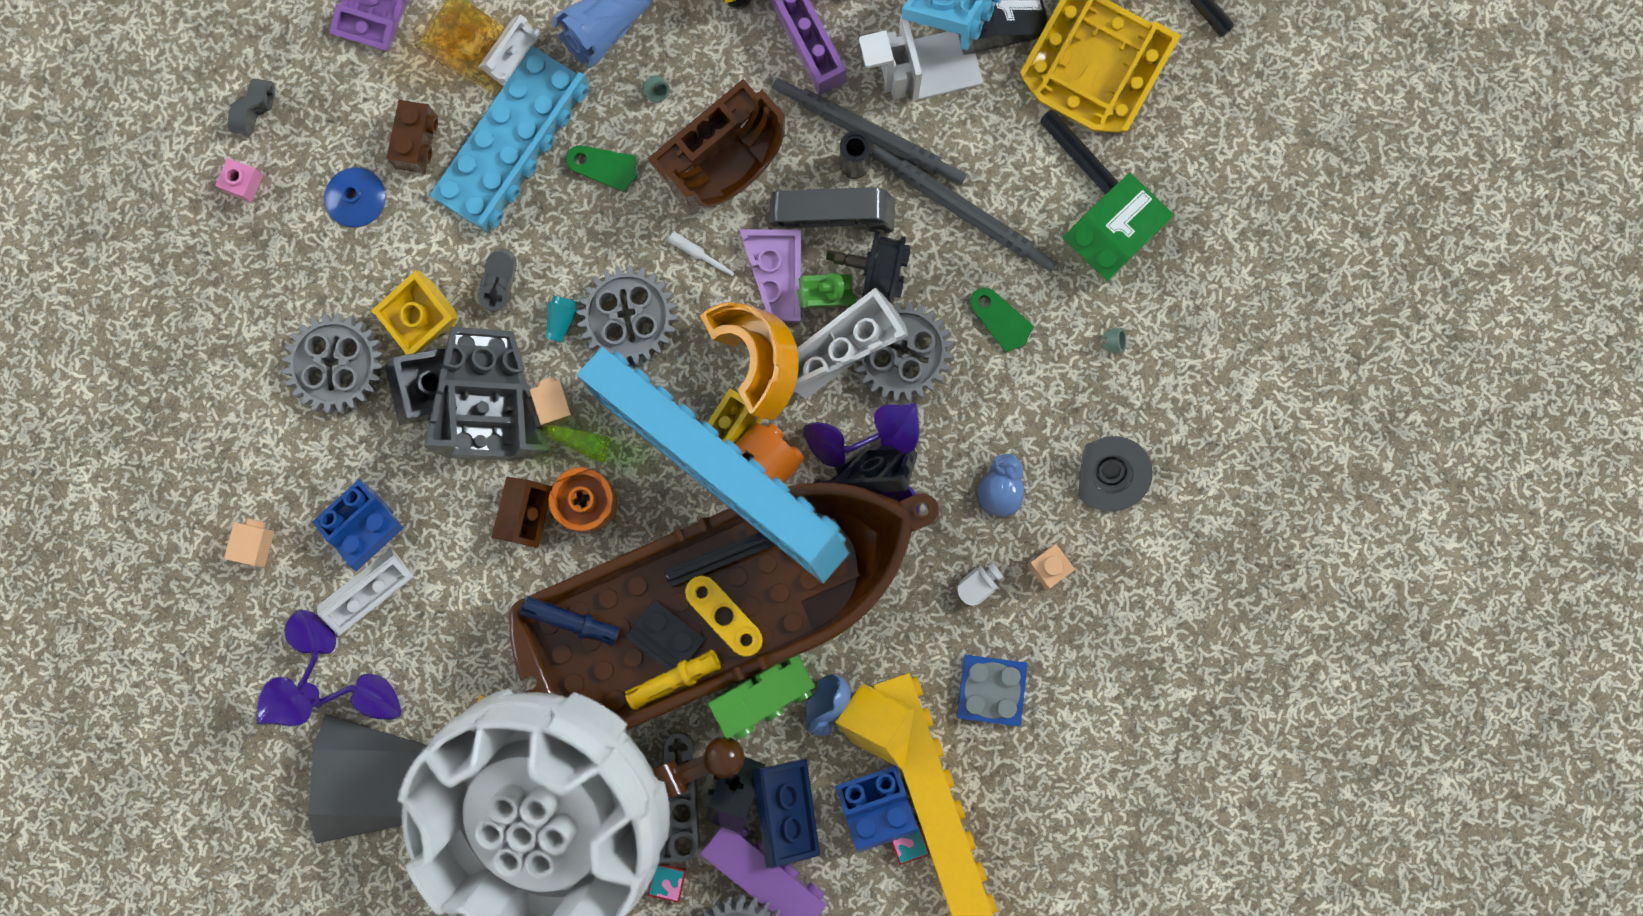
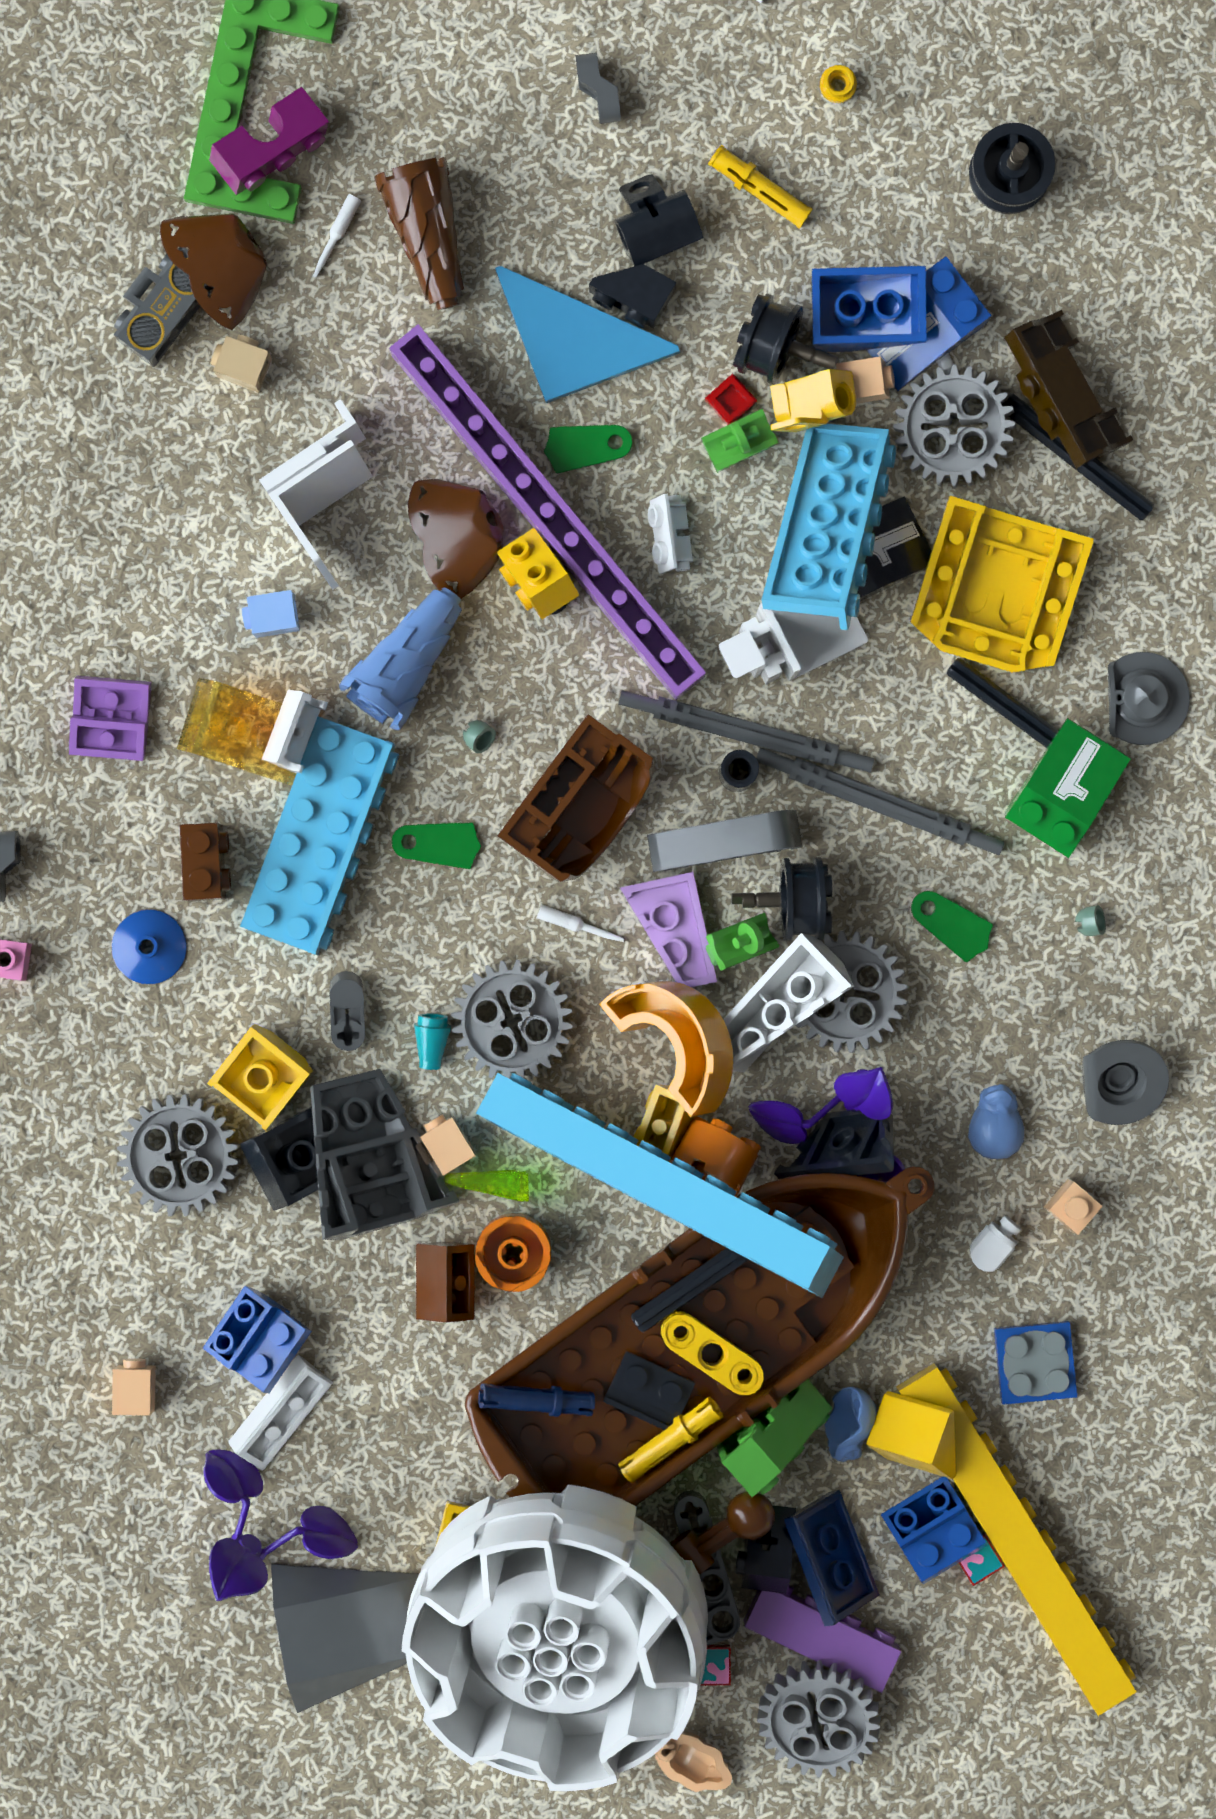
camera: 15 degrees left, 5 degrees up
(1196, 176) = (1146, 698): none -> dark grey hat

